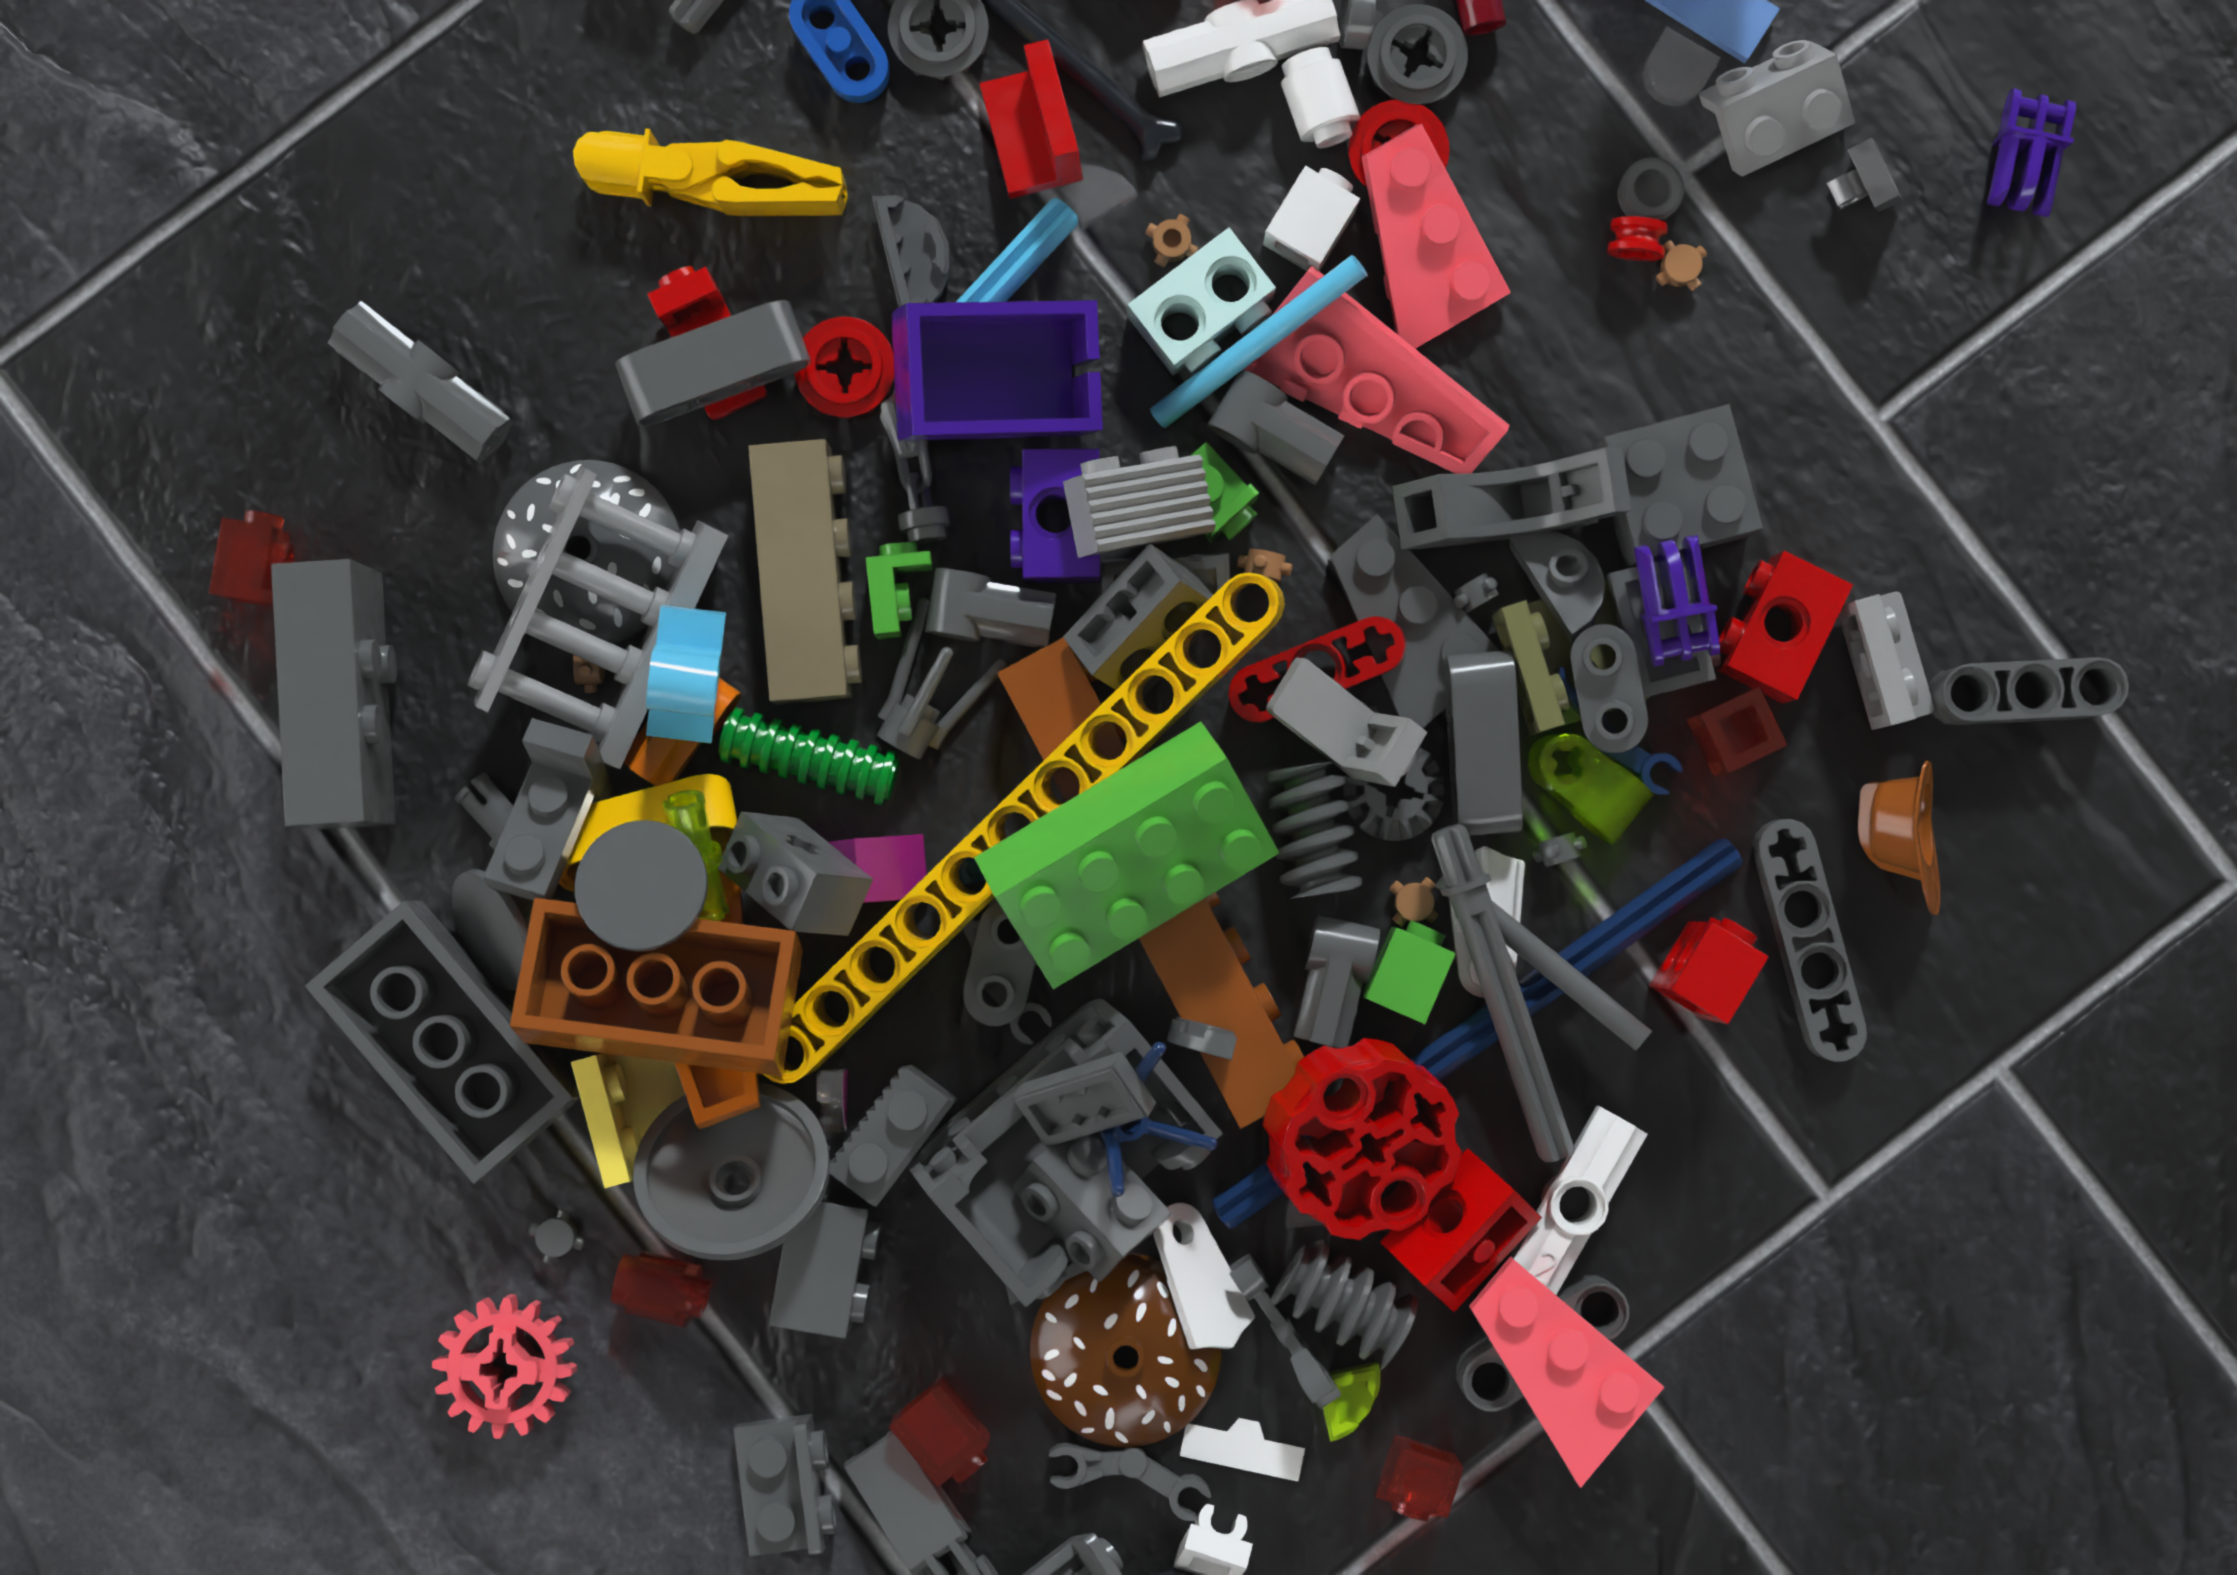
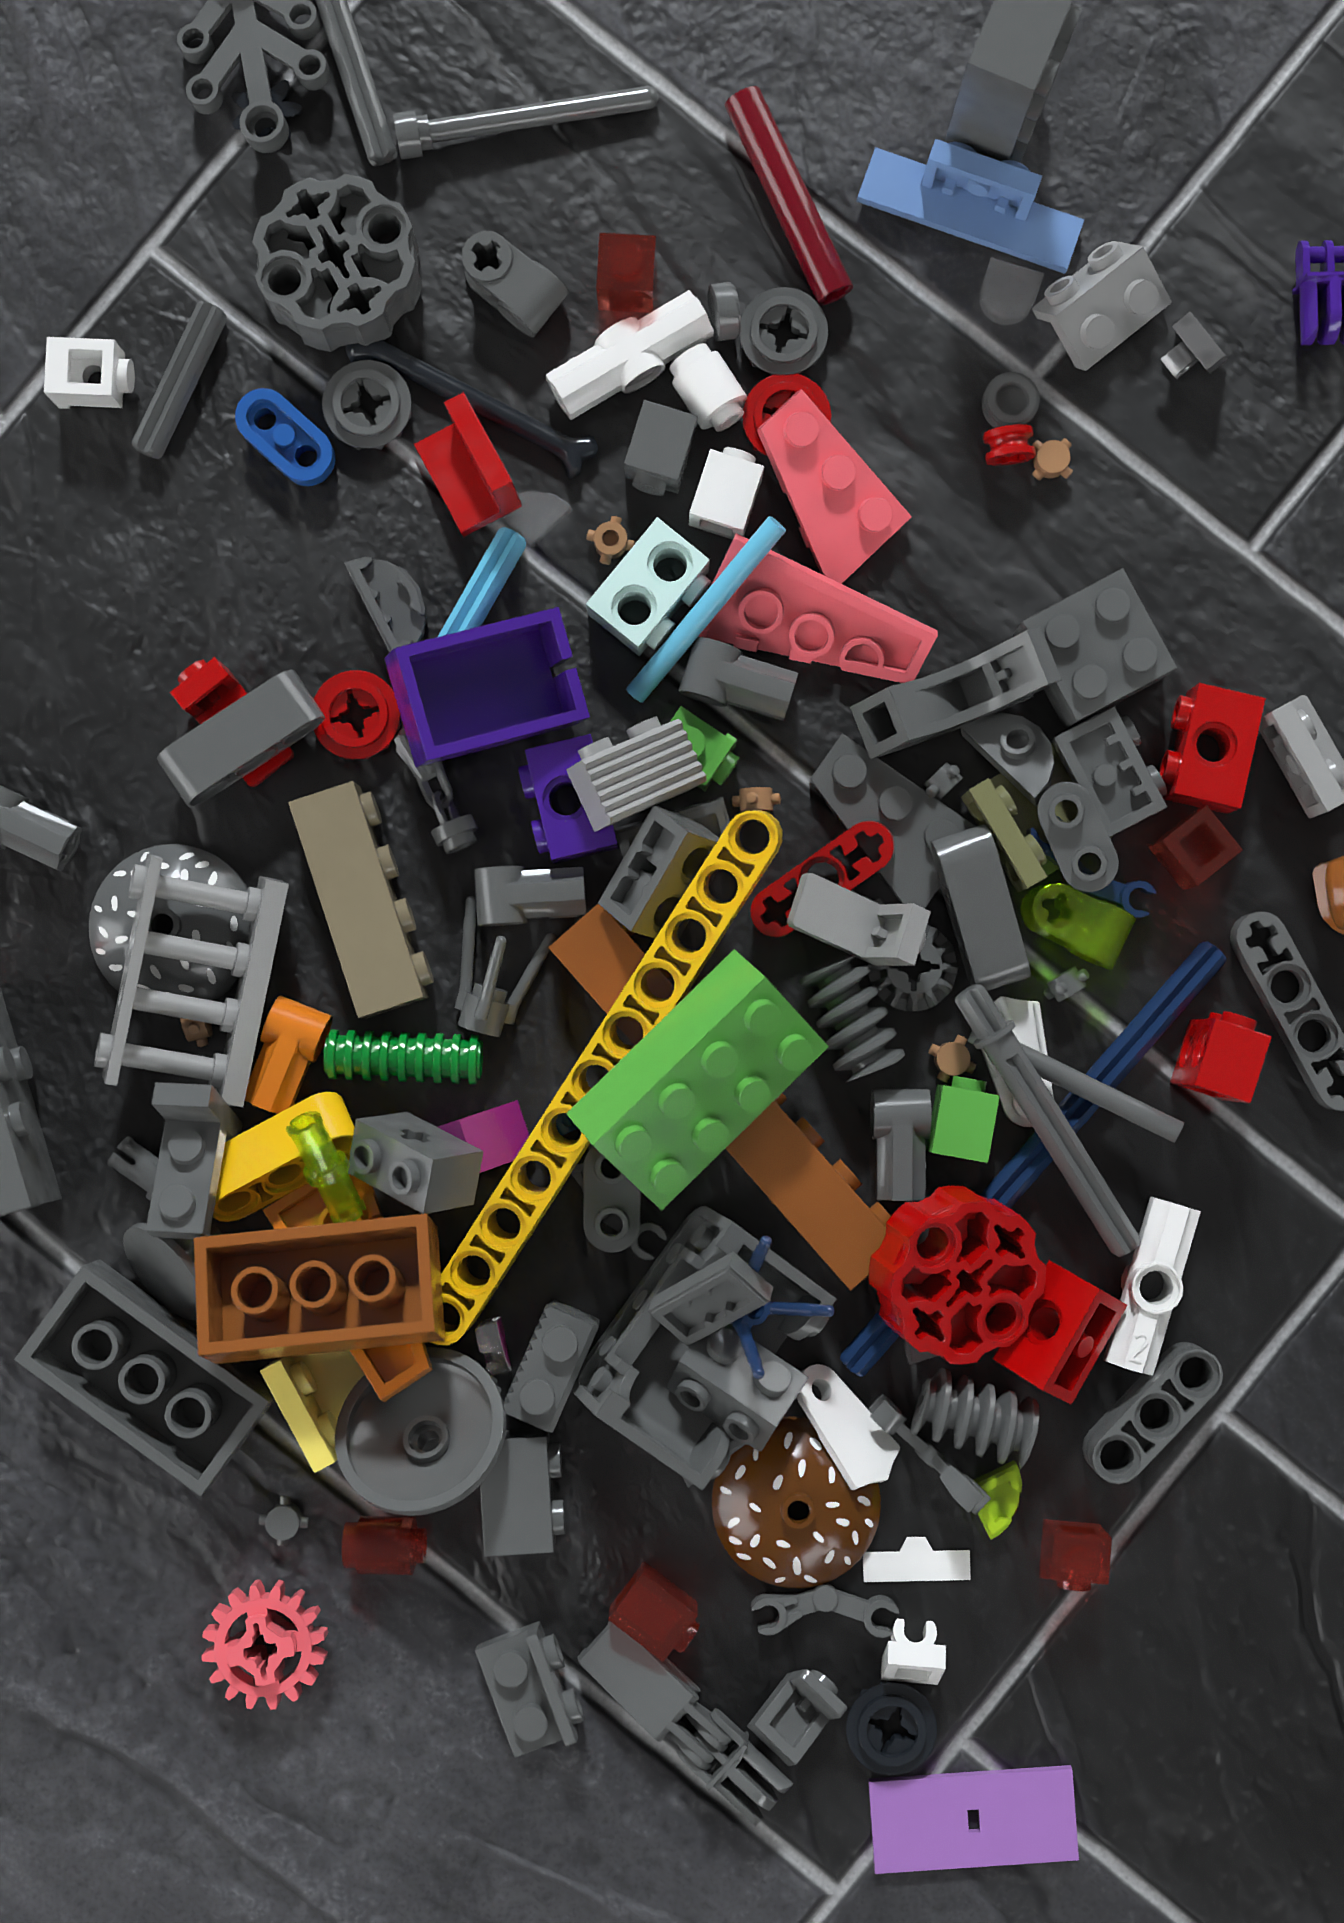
camera: 10 degrees left, 0 degrees up
(641, 885) = (284, 1205): dark grey shield -> none
(685, 674) = (279, 1012): medium azure tile -> none
(703, 173) = (195, 578): yellow arm -> none
(890, 599) = (441, 905): bright green bracket -> none
(1202, 1037) = (799, 1220): dark grey tile -> none
(1250, 152) = (660, 448): none -> dark grey brick
(1565, 1368) = (1178, 1430): coral wing -> none
(1676, 600) = (1117, 747): dark purple arm -> none

